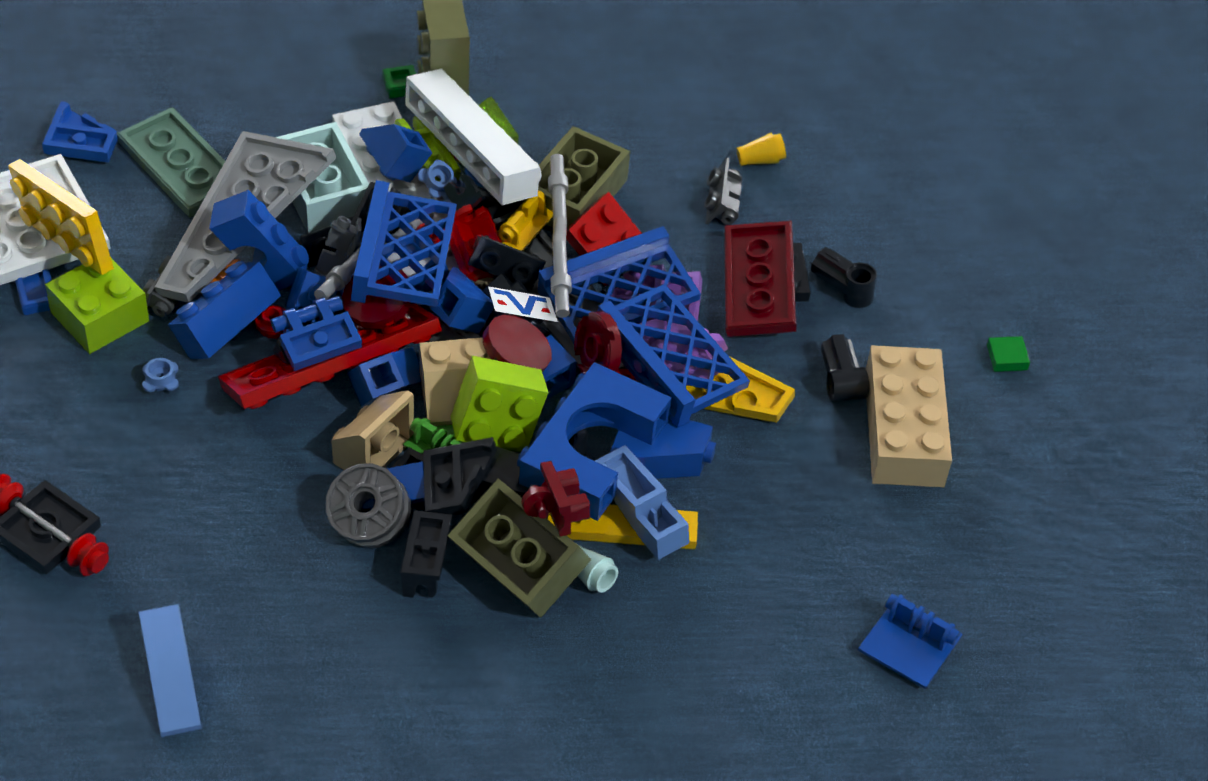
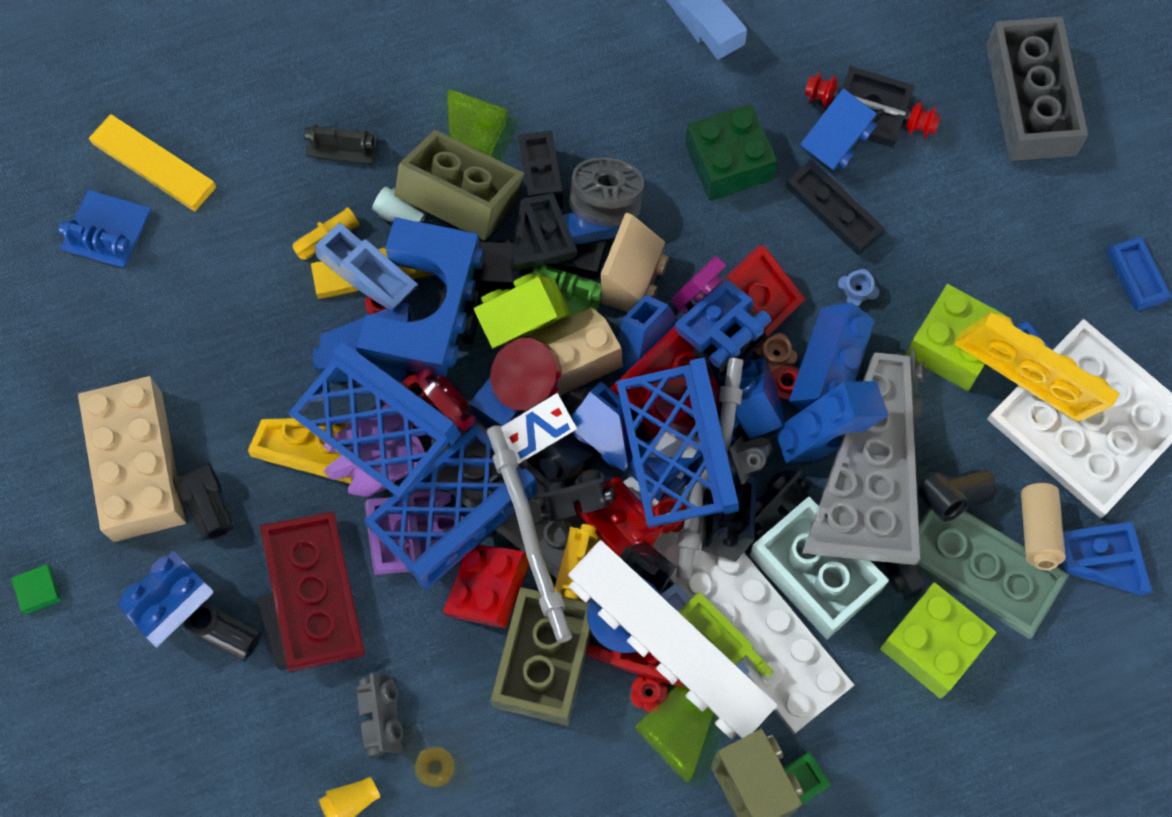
camera: 170 degrees right, 20 degrees up
(100, 492) = (839, 131): none -> blue brick
(118, 156) = (1042, 526): none -> tan brick
(142, 445) = (834, 207): none -> black plate
(182, 191) = (953, 495): none -> black piece
(220, 516) = (730, 152): none -> dark green brick
(250, 107) = (938, 640): none -> lime brick
(264, 343) = (780, 343): none -> nougat plate
(321, 377) = (699, 285): none -> magenta hinge
(396, 150) = (753, 616): blue slope -> none
(441, 170) = (682, 577): medium blue plate -> none
(480, 634) = (475, 121): none -> clear neon green wing
(558, 498) = (417, 175): dark red hips -> none
(631, 655) = (340, 144): none -> pearl dark grey hinge
(672, 567) = (305, 246): none -> yellow axle
(687, 154) = (428, 756): none -> clear yellow plate
(850, 700) = (152, 162): none -> yellow tile
(889, 296) = (164, 598): none -> blue plate

